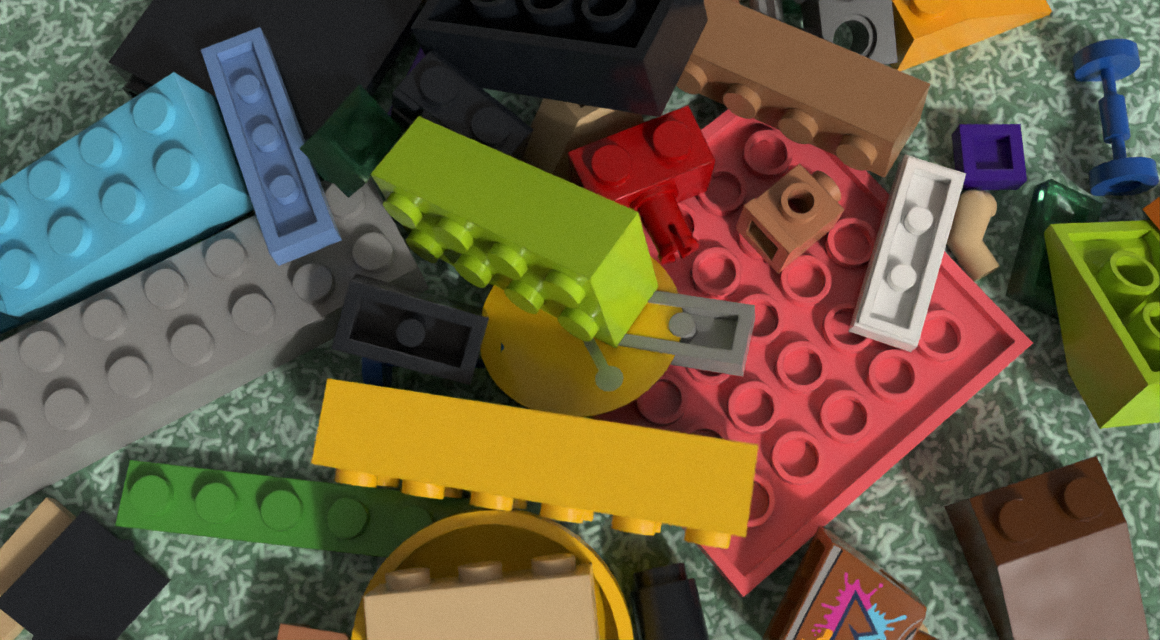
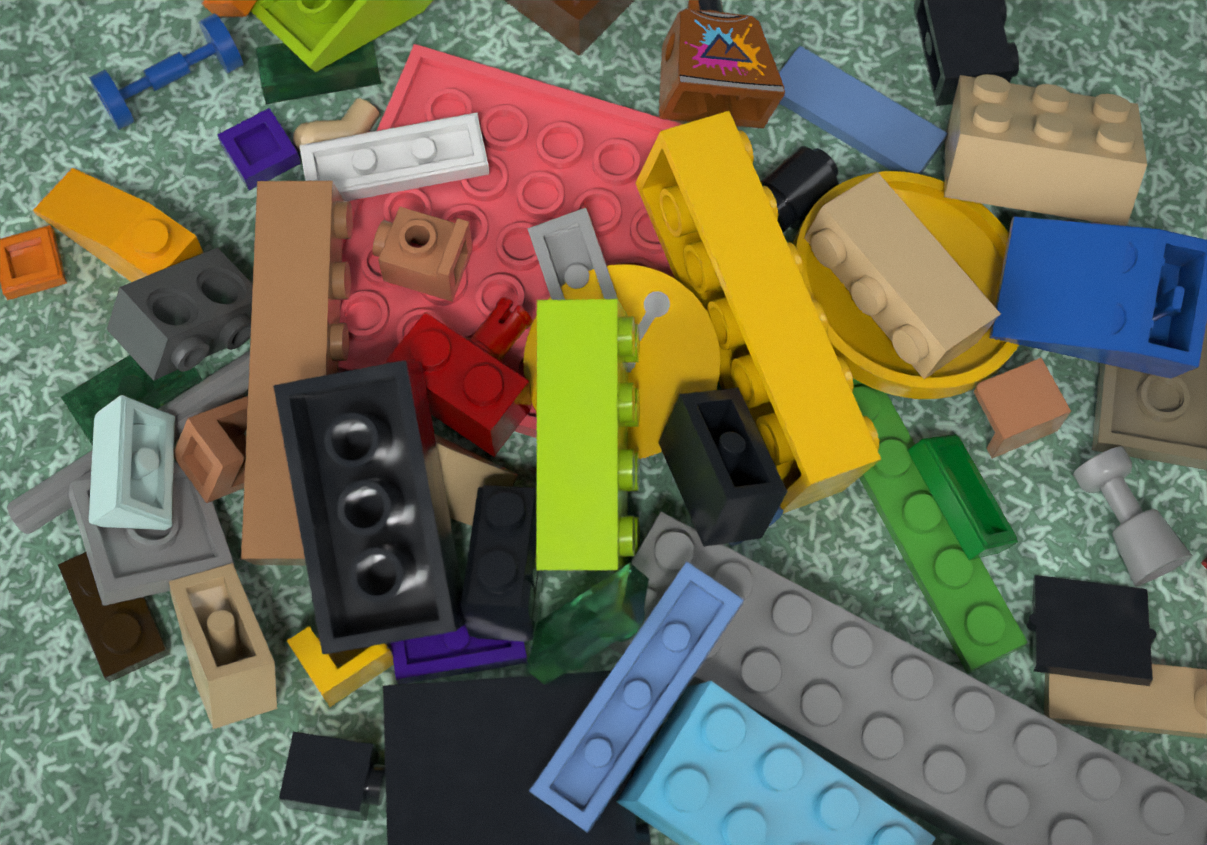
camera: 125 degrees left, 5 degrees down
(272, 559) = (962, 496): none -> green tile

